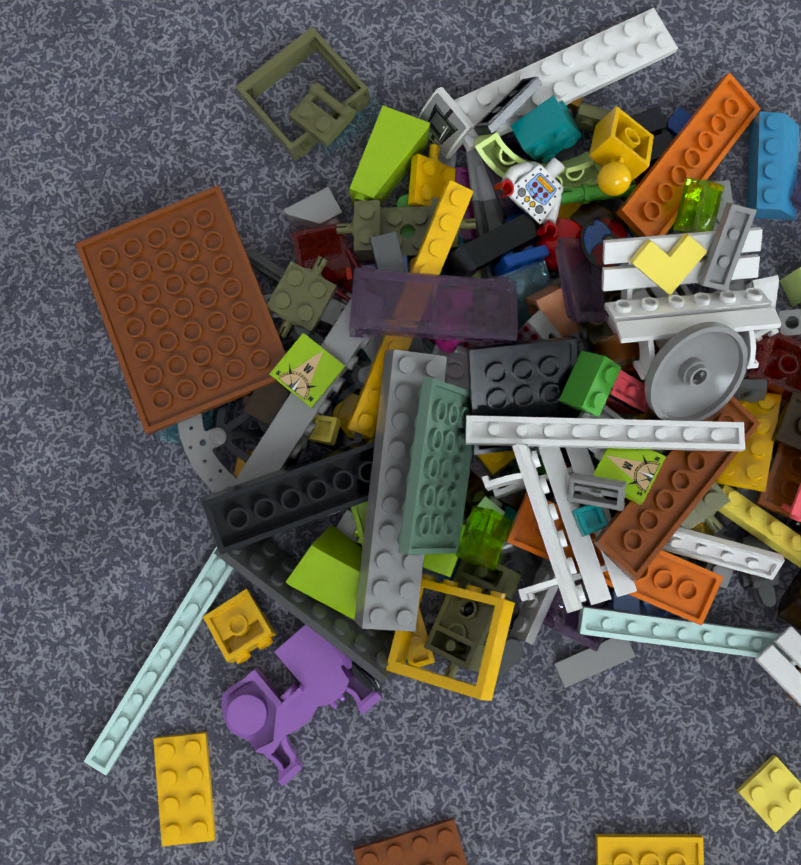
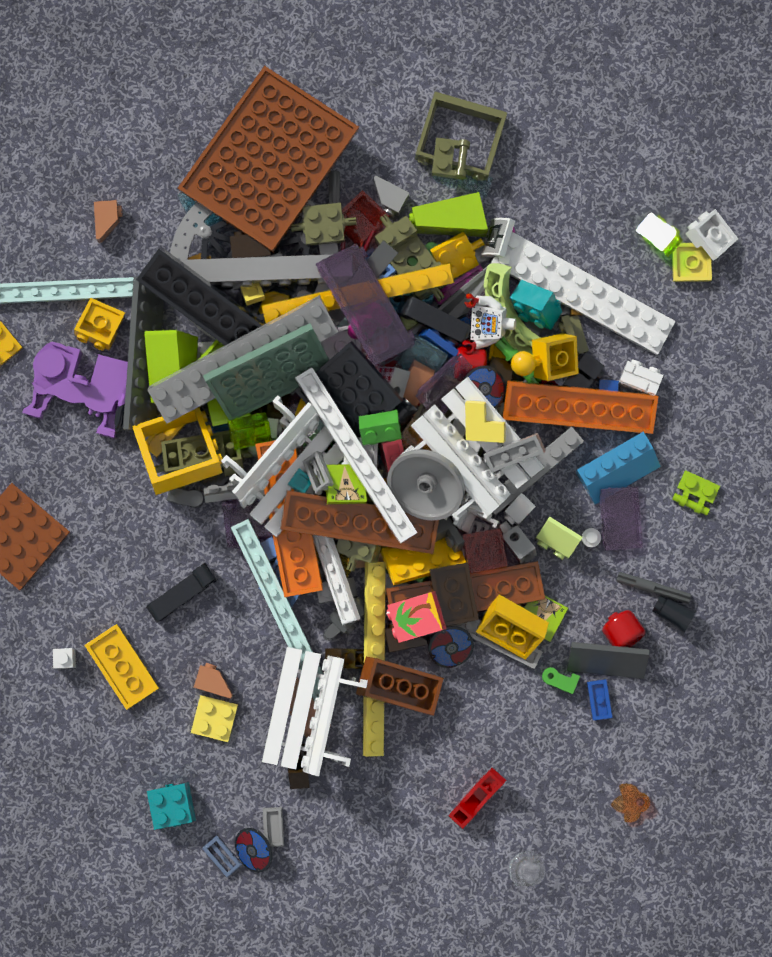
camera: 60 degrees right, 0 degrees up
(124, 538) = (106, 218): none -> nougat slope
(307, 370) = (278, 257): lime tile -> none
(507, 106) = (530, 269): black tile -> none
(589, 662) = (222, 555): light grey tile -> none
(609, 735) = (182, 592): none -> black beam
(694, 81) = (640, 378): none -> white brick
(698, 206) = (551, 428): clear neon green brick -> none
(734, 769) = (212, 681): none -> nougat slope

